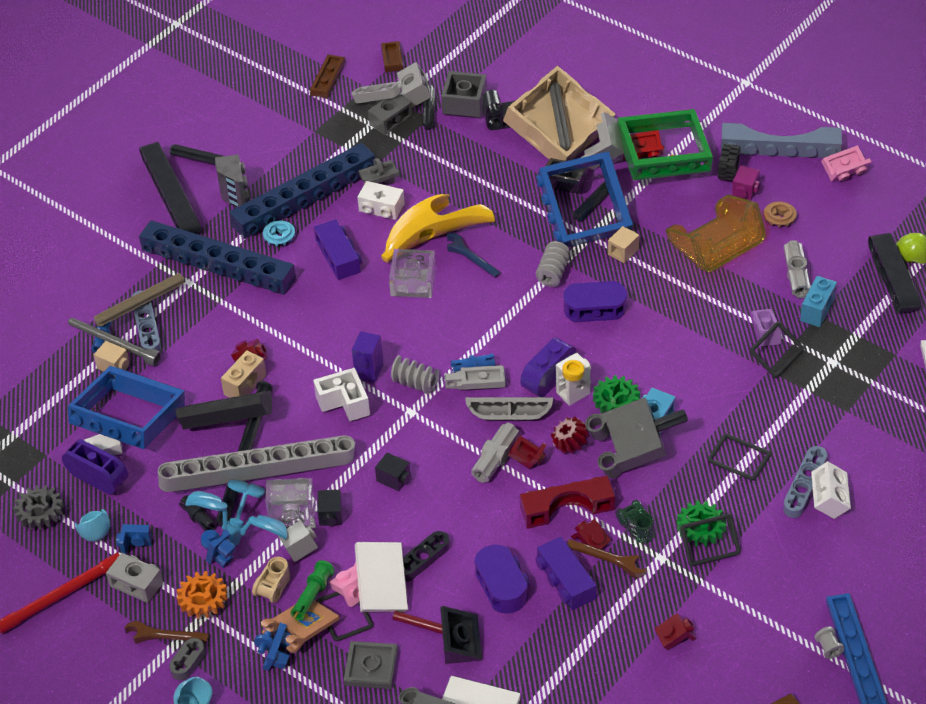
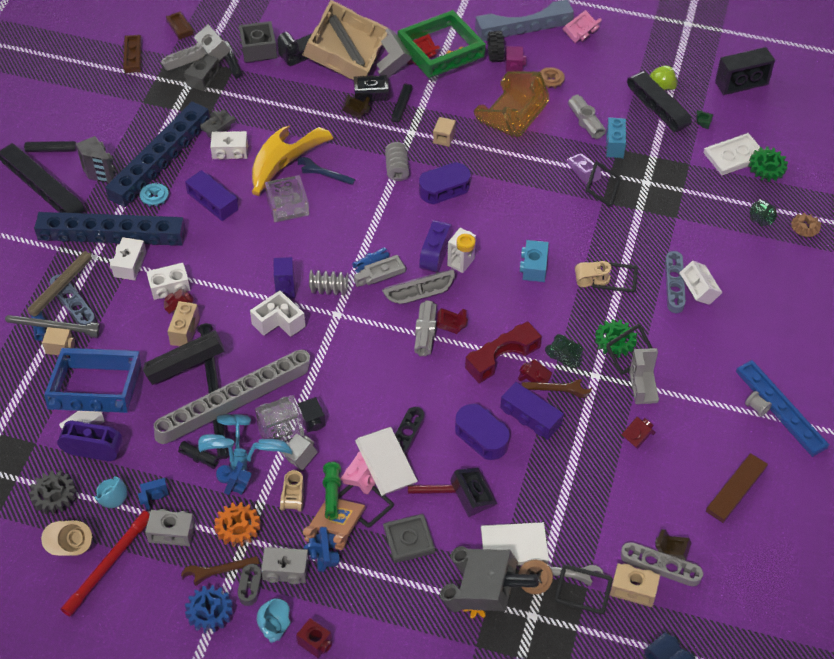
camera: 25 degrees left, 5 degrees up
(29, 555) = (66, 538): none -> tan piece
(135, 667) = (198, 613): none -> blue gear
(220, 293) = (128, 258): none -> white brick
(229, 650) = (276, 558): none -> light grey brick
(249, 326) = (168, 280): none -> white brick
(393, 472) = (350, 369): black brick -> none
(534, 193) = (356, 107): none -> dark brown bracket
(570, 435) = (480, 296): dark red gear -> none
(614, 190) = (419, 88): blue window -> none
(614, 393) = (499, 254): green gear -> none
(633, 434) = (533, 282): dark grey piece -> none
(709, 442) = (587, 272): none -> tan piece
(710, 573) = (643, 377): none -> light grey panel

